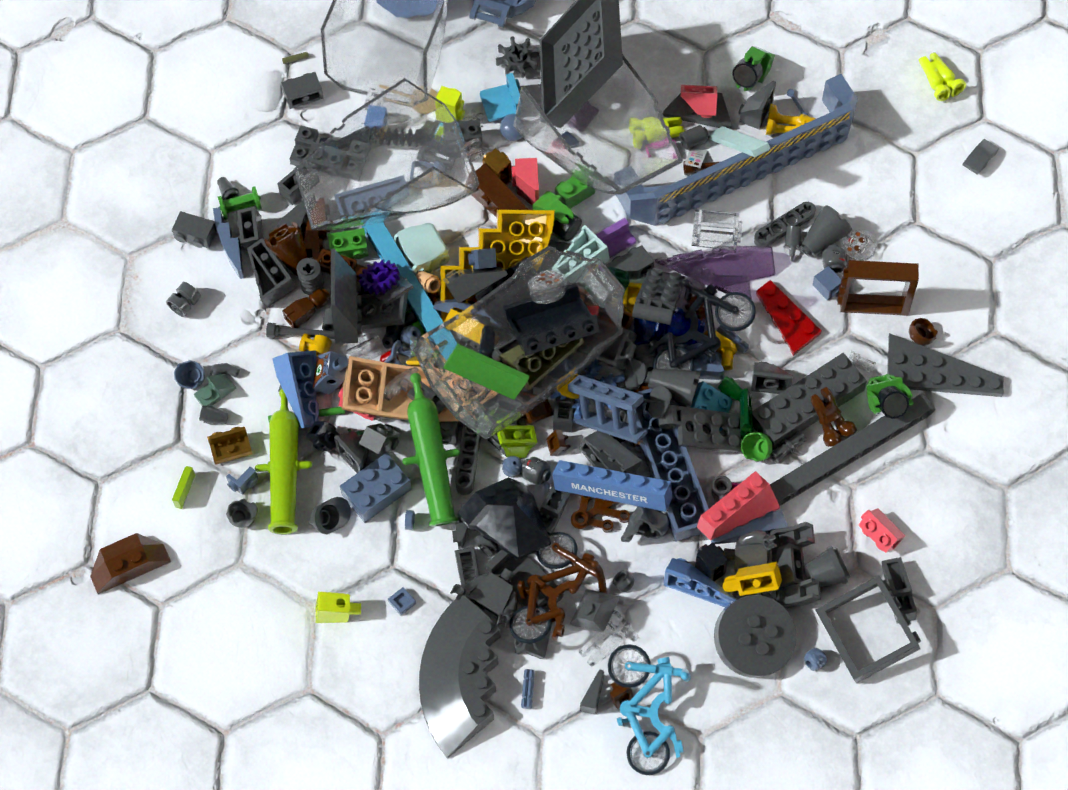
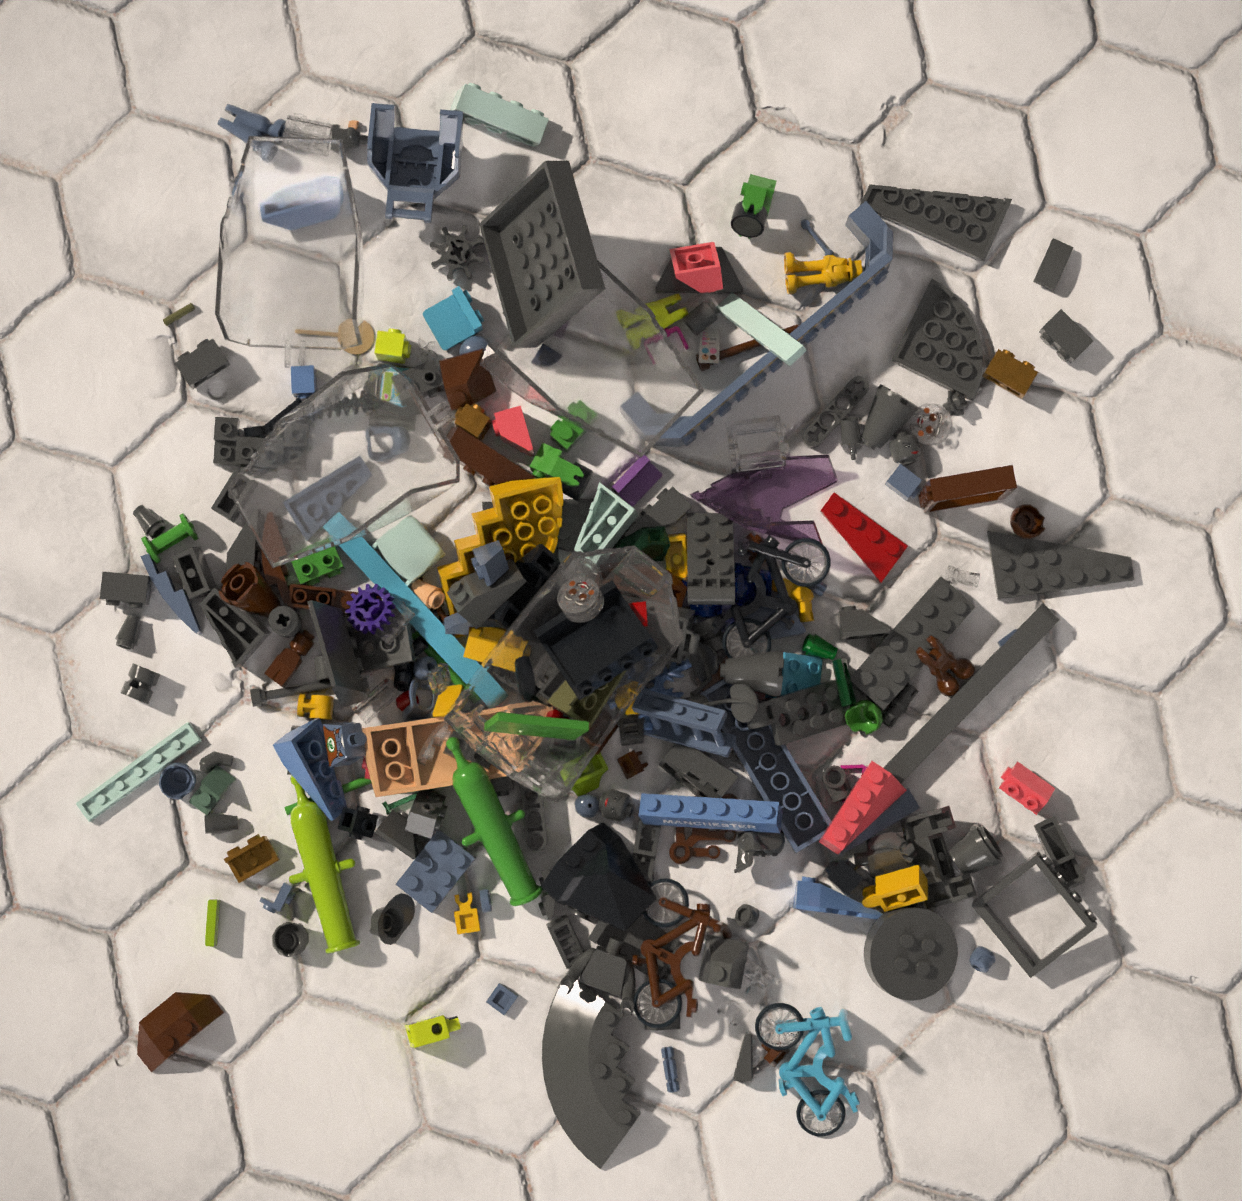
camera: 15 degrees left, 20 degrees up
(160, 365) = (139, 772): none -> light aqua tile
(186, 263) = (128, 633): none -> dark grey cone
(390, 530) = (467, 918): none -> yellow plate
(501, 136) = (466, 379): none -> reddish brown slope
(757, 106) = (769, 260): dark grey slope -> none
(881, 193) = (943, 342): none -> dark grey plate
(882, 235) = (955, 402): none -> dark grey plant
(888, 396) = (1005, 623): piece -> none
(902, 108) = (947, 217): none -> dark grey wing
(930, 222) = (1010, 373): none -> pearl gold brick
(941, 77) = (982, 159): neon yellow piece -> none
(980, 207) = (1065, 336): none -> dark grey brick

